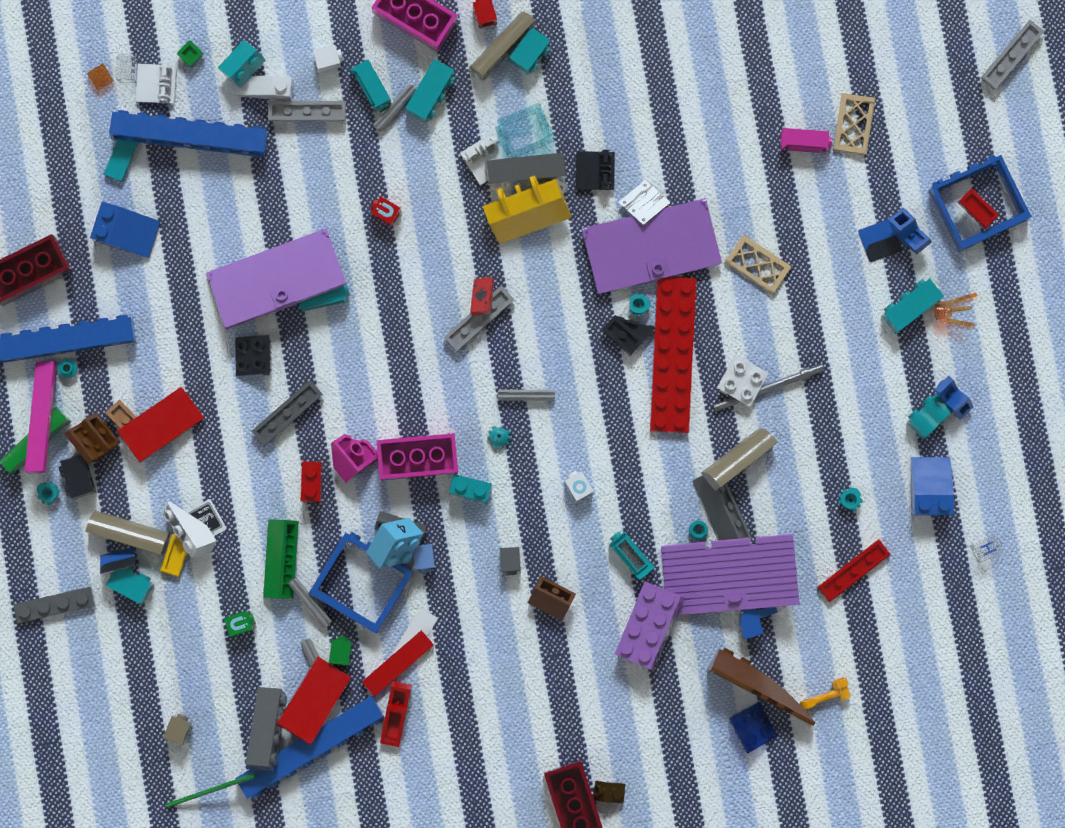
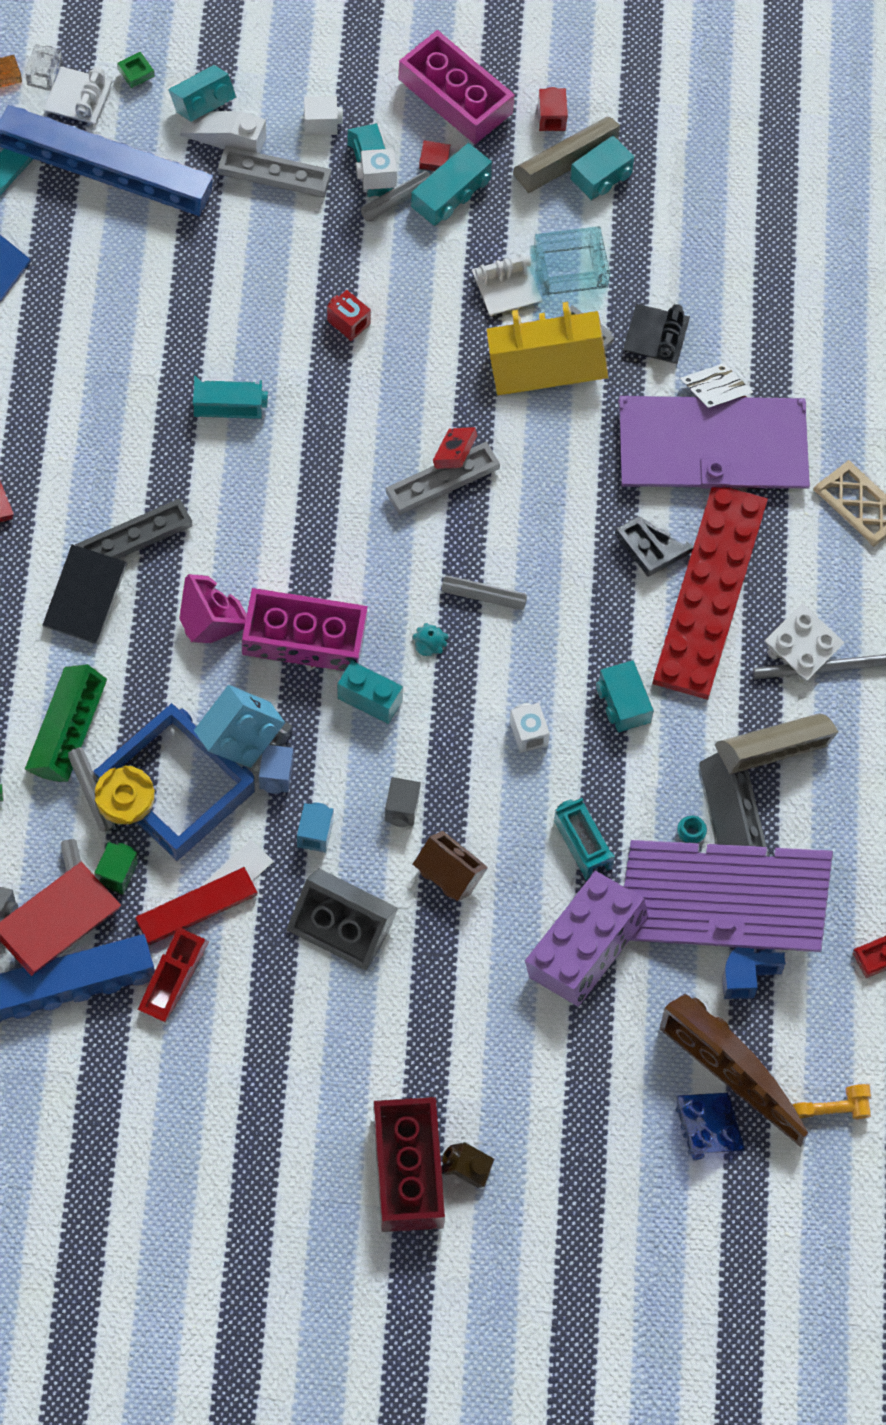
camera: 15 degrees right, 20 degrees down
(253, 355) = (108, 451): black hinge -> none
(267, 465) = (84, 594): none -> black tile
(276, 278) = (170, 359): medium lavender door -> none
(311, 482) = (142, 630): red brick -> none
(333, 605) = (124, 795): none -> yellow tile
(378, 100) = (377, 169): none -> white brick
(412, 69) = (433, 155): none -> red tile
(459, 590) = (315, 827): none -> dark azure brick
(492, 649) = (341, 918): none -> dark grey slope
(524, 167) = (547, 297): dark grey panel -> none
(634, 448) = (625, 696): none -> teal brick
(640, 300) = (677, 512): teal animal -> none

